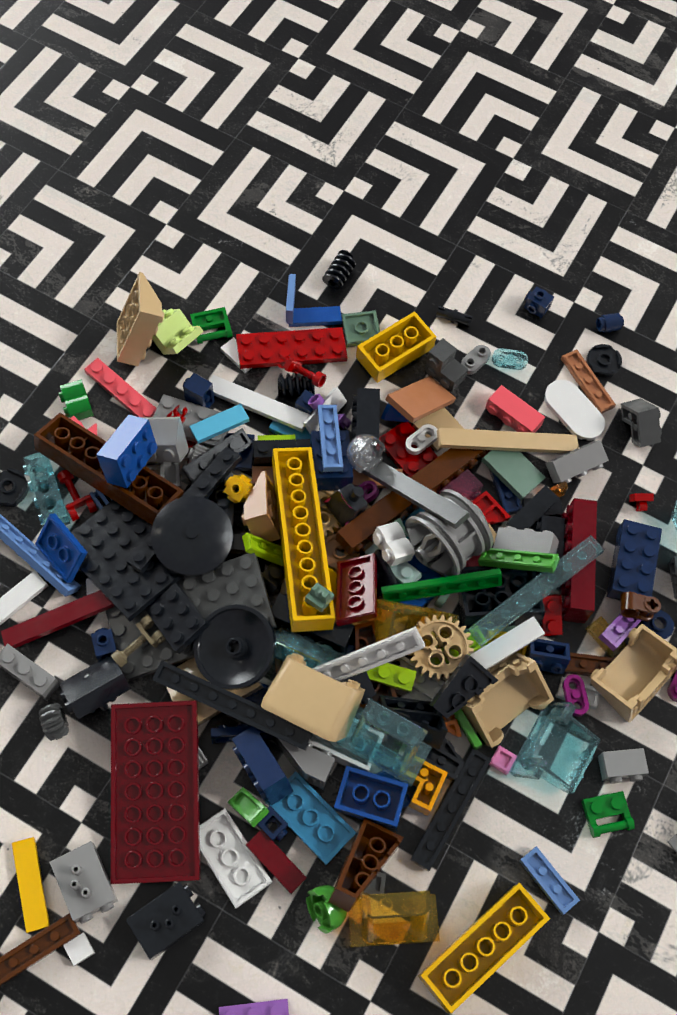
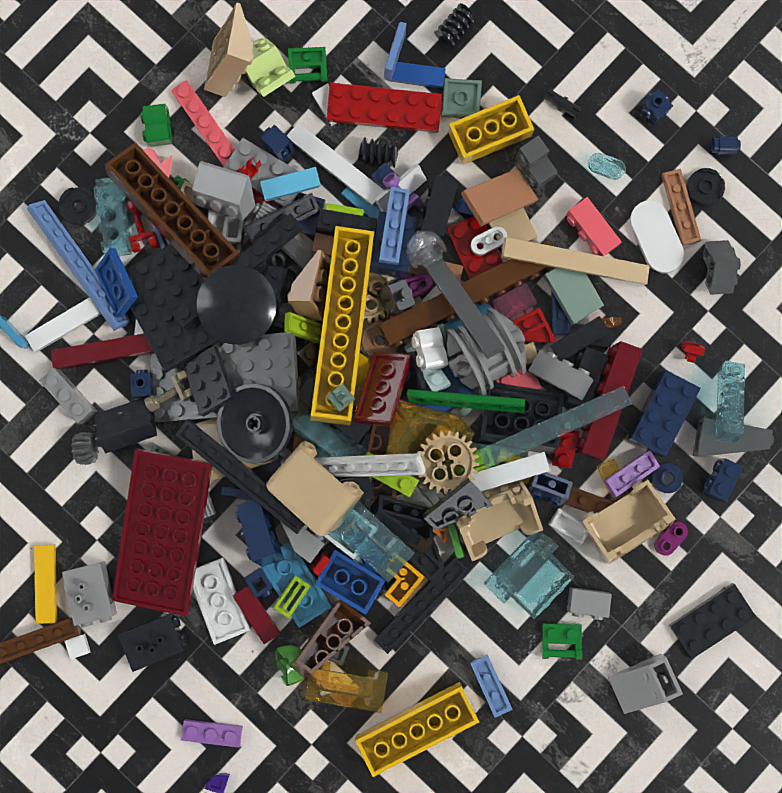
camera: 20 degrees right, 20 degrees up
(127, 451) = (189, 205): blue brick -> none
(245, 488) = (292, 262): yellow brick -> none
(248, 807) = (242, 566): bright green tile -> none
(294, 366) = (399, 154): red bar -> none
(304, 848) = (301, 582): none -> lime tile
(333, 784) = (320, 562): none -> red tile
(476, 358) = (571, 157): light grey plate -> none
(503, 760) = (481, 571): bright pink tile -> none
(519, 560) = (549, 392): bright green tile -> none
(576, 695) = (566, 530): magenta plate -> none
(577, 462) = (640, 297): light grey brick -> none
(639, 606) = (651, 460): reddish brown piece -> none

